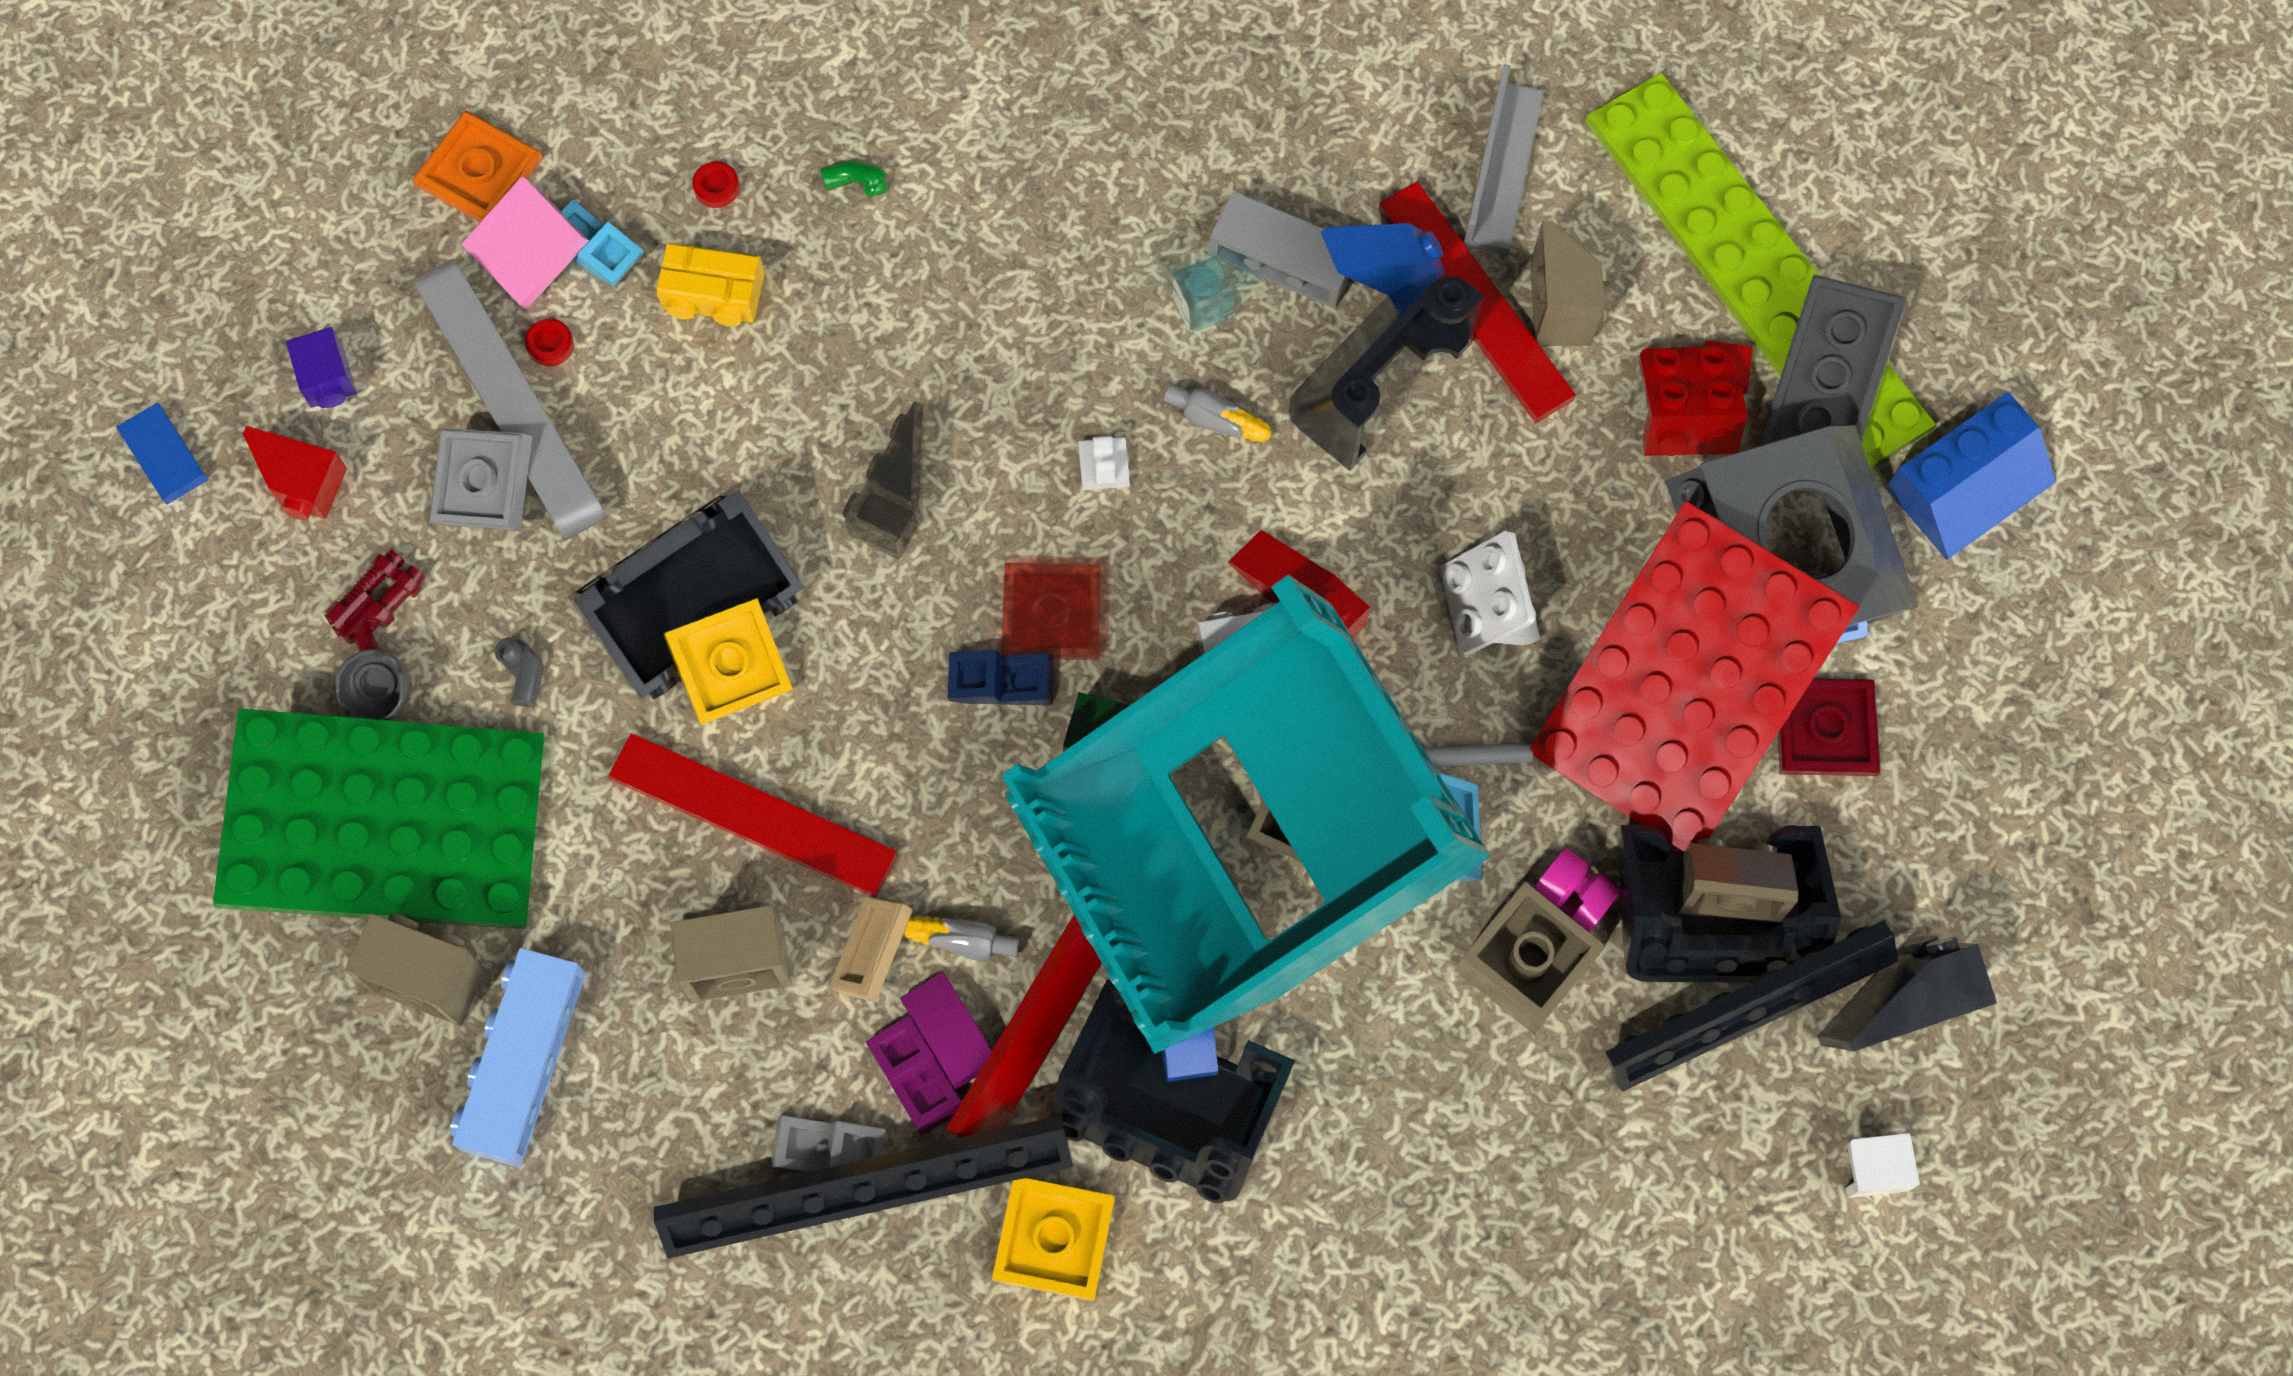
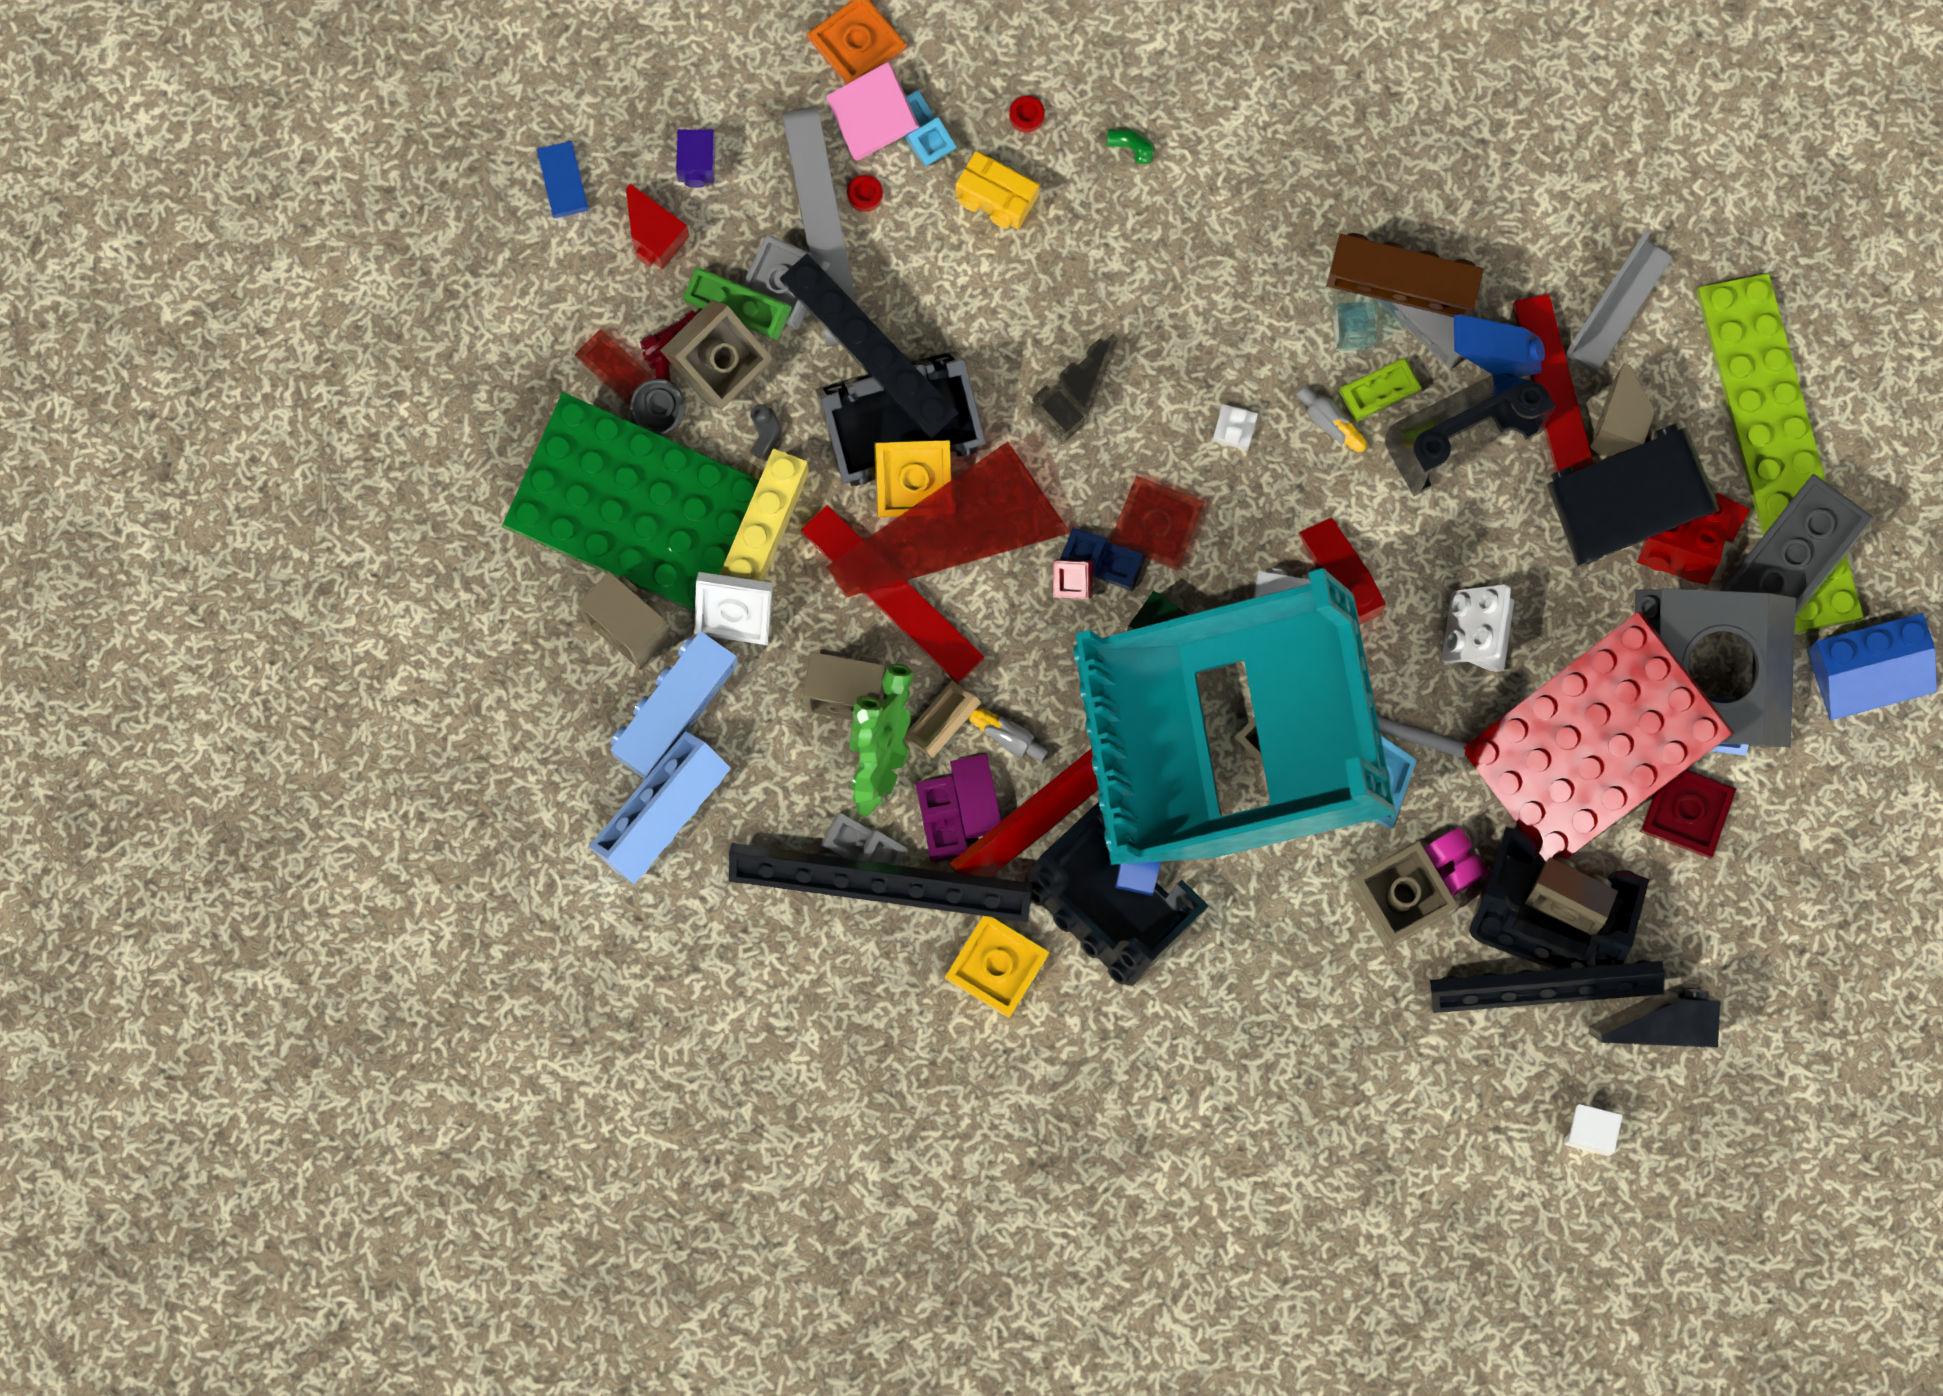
camera: 20 degrees right, 5 degrees up
(298, 657) = (612, 365): none -> clear red tile
(425, 595) = (716, 354): none -> dark tan brick
(432, 525) = (751, 307): none -> bright green tile
(543, 1196) = (660, 807): none -> light blue brick
(553, 903) = (733, 608): none -> white tile
(557, 789) = (766, 517): none -> light yellow brick
(615, 518) = (869, 346): none -> black plate
(798, 1002) = (879, 737): none -> bright green shield
(816, 686) = (970, 518): none -> clear red wing
(972, 714) = (1072, 579): none -> tile
(1241, 212) = (1404, 276): none -> reddish brown brick
(1261, 359) = (1380, 389): none -> lime plate
(1614, 373) = (1632, 495): none -> black windscreen

